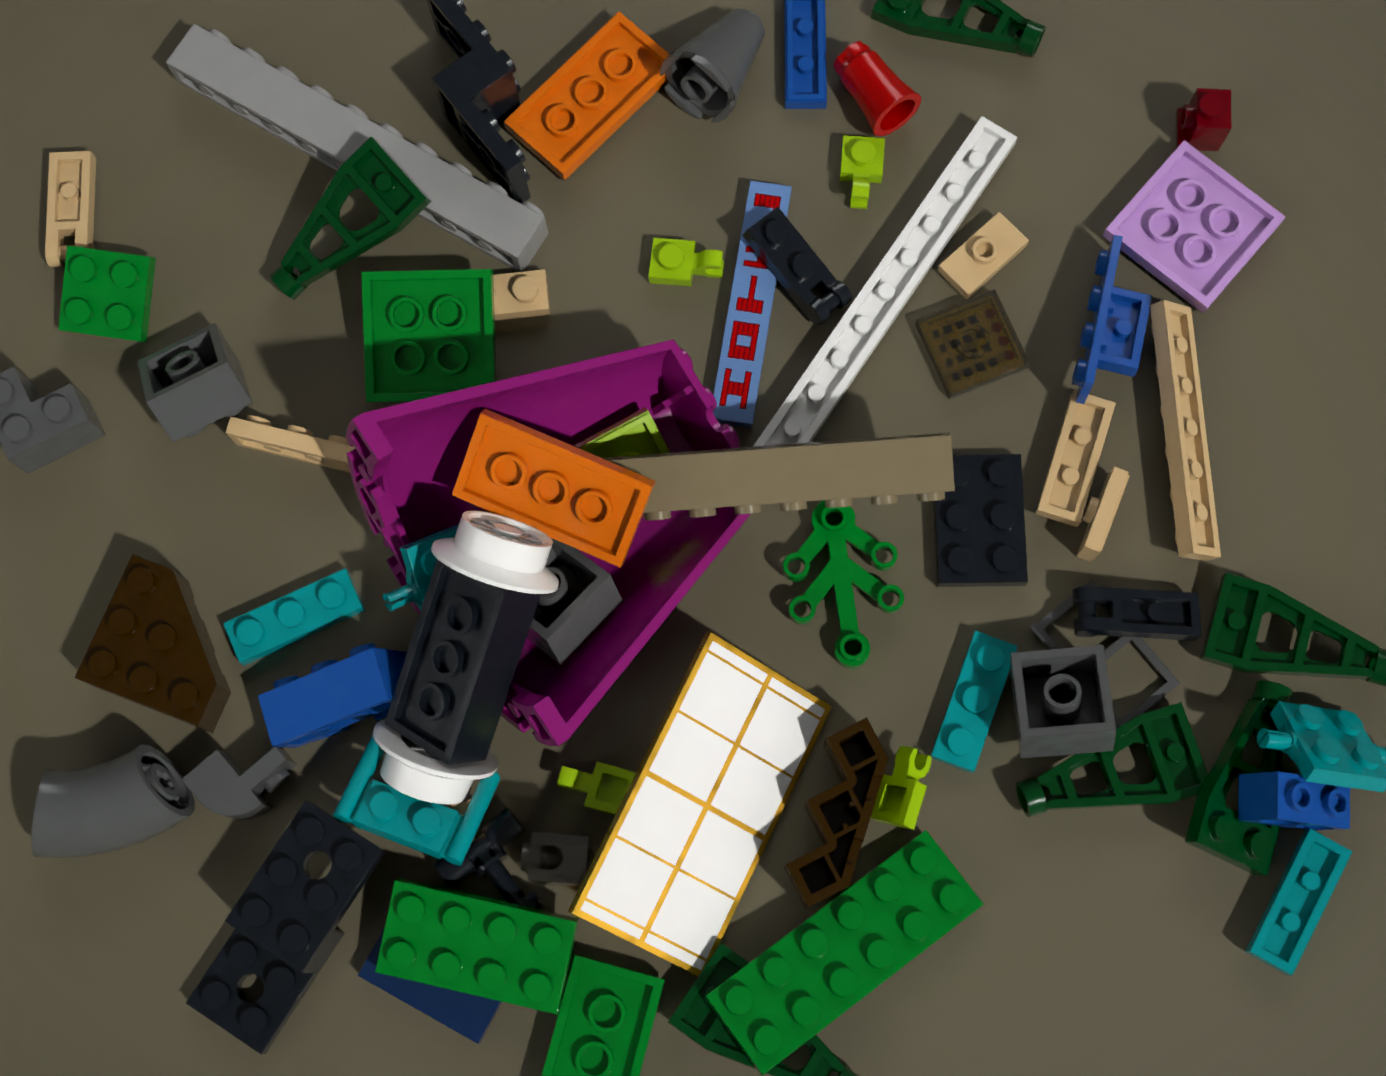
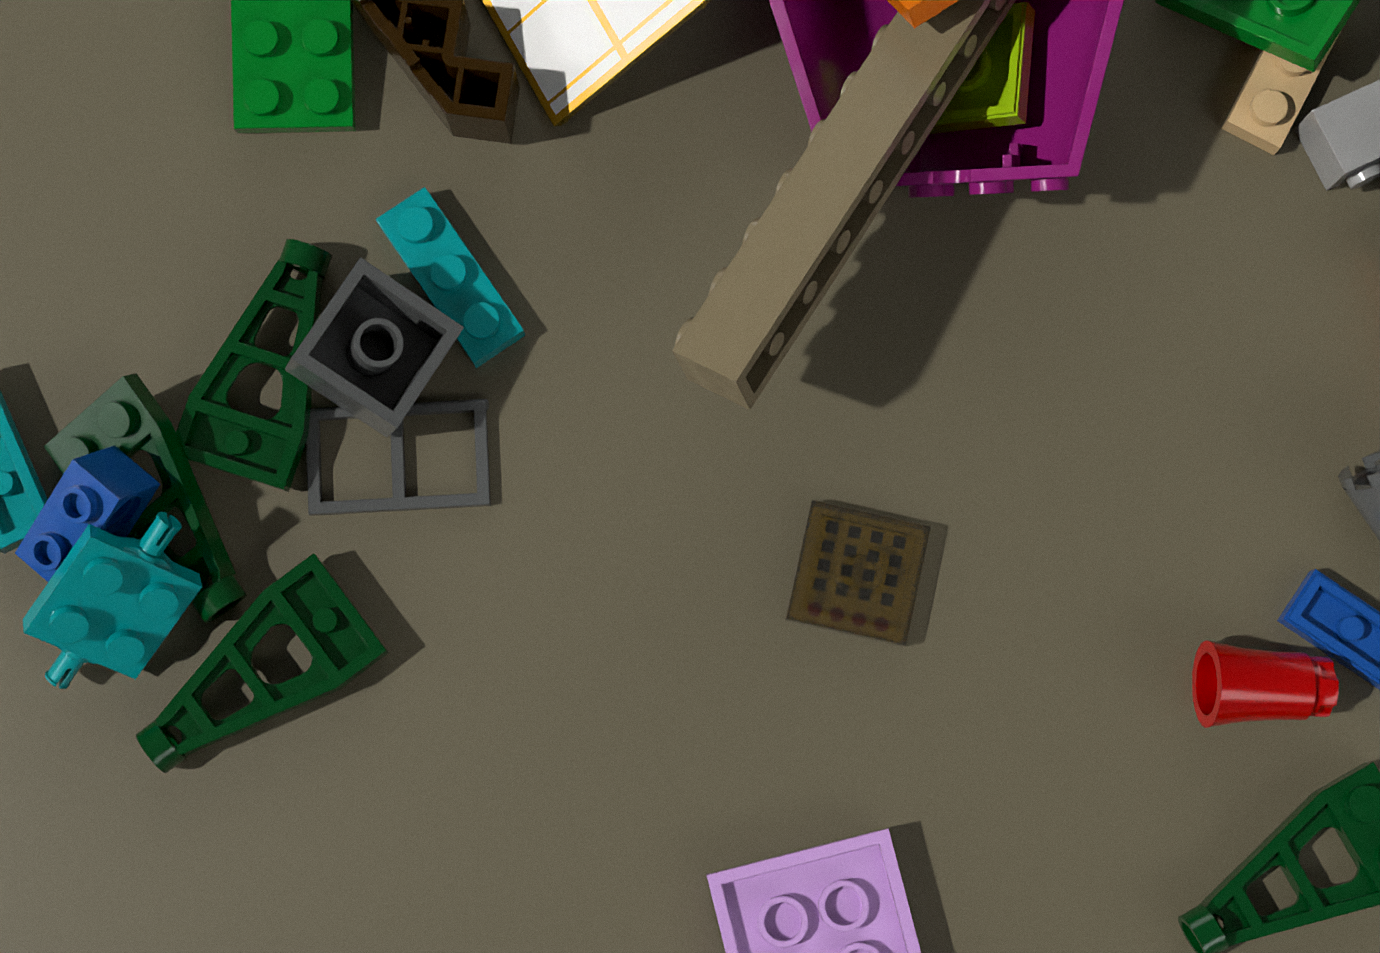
camera: 120 degrees right, 5 degrees up
(677, 261) = (1188, 307): lime plate -> none
(748, 316) = (1083, 357): medium blue tile -> none
(796, 266) = (1092, 430): black plate -> none
(842, 573) = (688, 233): green plant -> none
(862, 164) = (1172, 606): lime plate -> none
(890, 286) = (990, 521): white plate -> none
(902, 794) = (410, 123): lime plate -> none
(982, 524) = (644, 428): black plate -> none
(983, 255) = (957, 665): tan plate -> none
(1075, 459) = (637, 585): tan plate -> none
(1101, 513) = (553, 562): tan plate -> none
(1117, 325) = (757, 746): blue bracket -> none
(1137, 613) = (412, 517): black plate -> none
(1185, 431) = (582, 735): tan plate -> none

